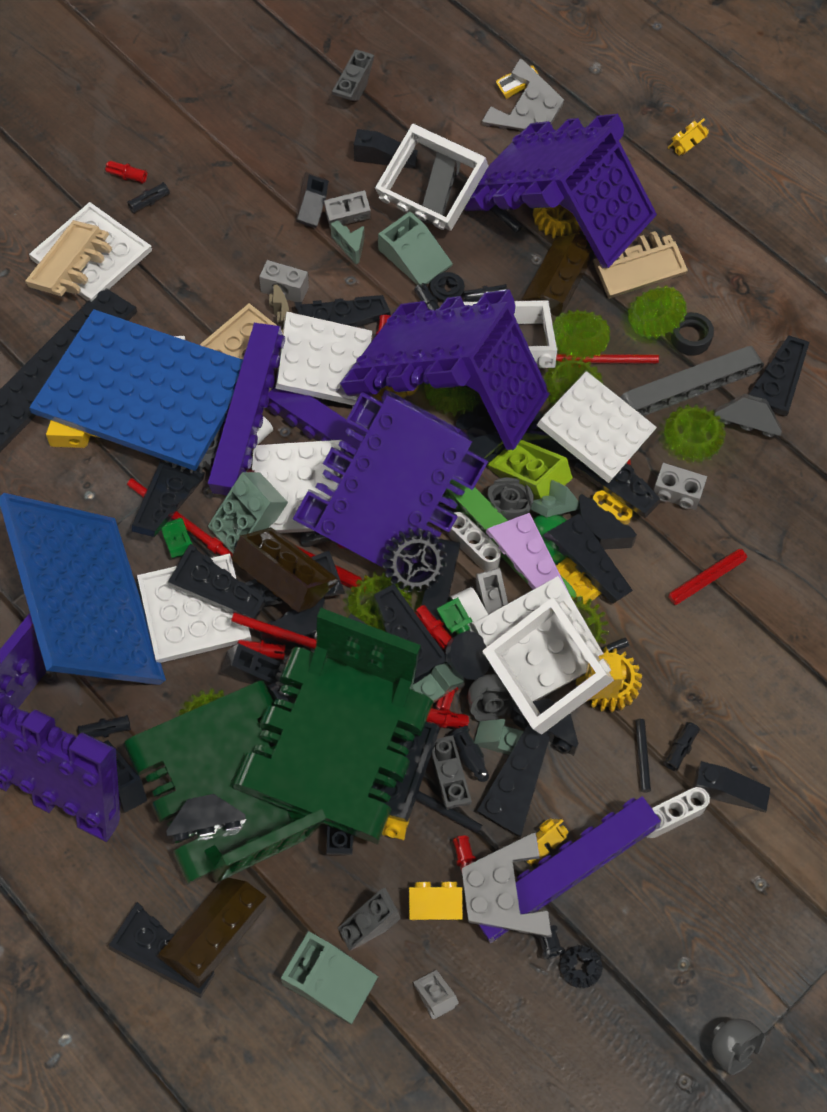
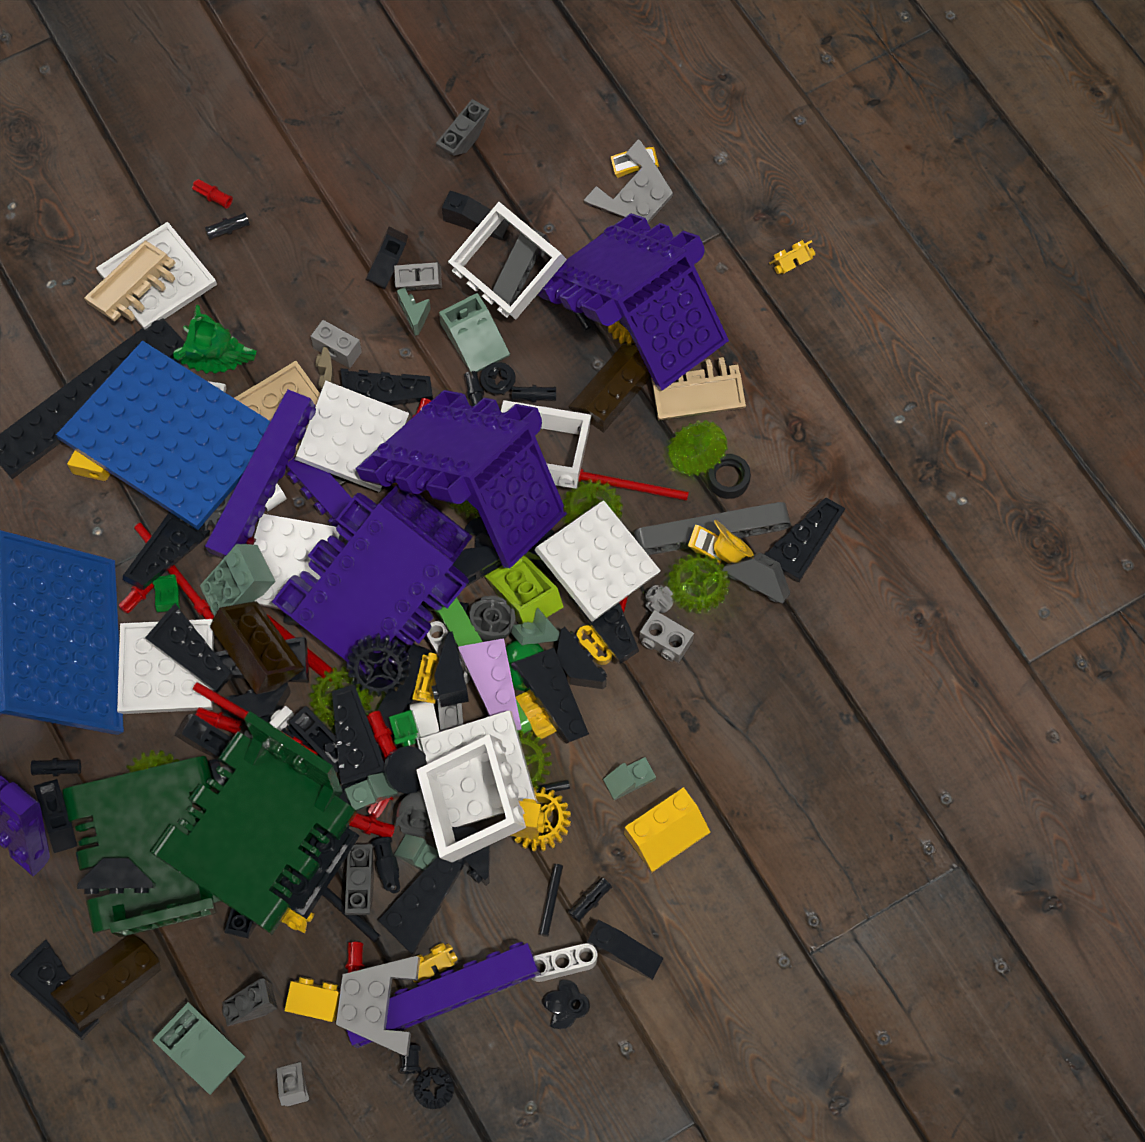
camera: 15 degrees right, 5 degrees up
(146, 545) = (134, 598): none -> red axle
(165, 301) = (211, 346): none -> green piece
(464, 566) = (426, 679): none -> yellow hinge
(492, 562) = (449, 676): none -> black slope
(581, 334) = (613, 448): clear neon green gear -> none
(662, 453) = (659, 599): none -> light grey gear
(683, 624) = (629, 778): none -> sand green slope
(685, 853) = (562, 1004): none -> black plate
(693, 392) = (703, 542): none -> slope
(707, 576) = (667, 734): red axle -> none
(716, 393) = (730, 547): none -> yellow piece
(736, 664) = (667, 830): none -> yellow slope

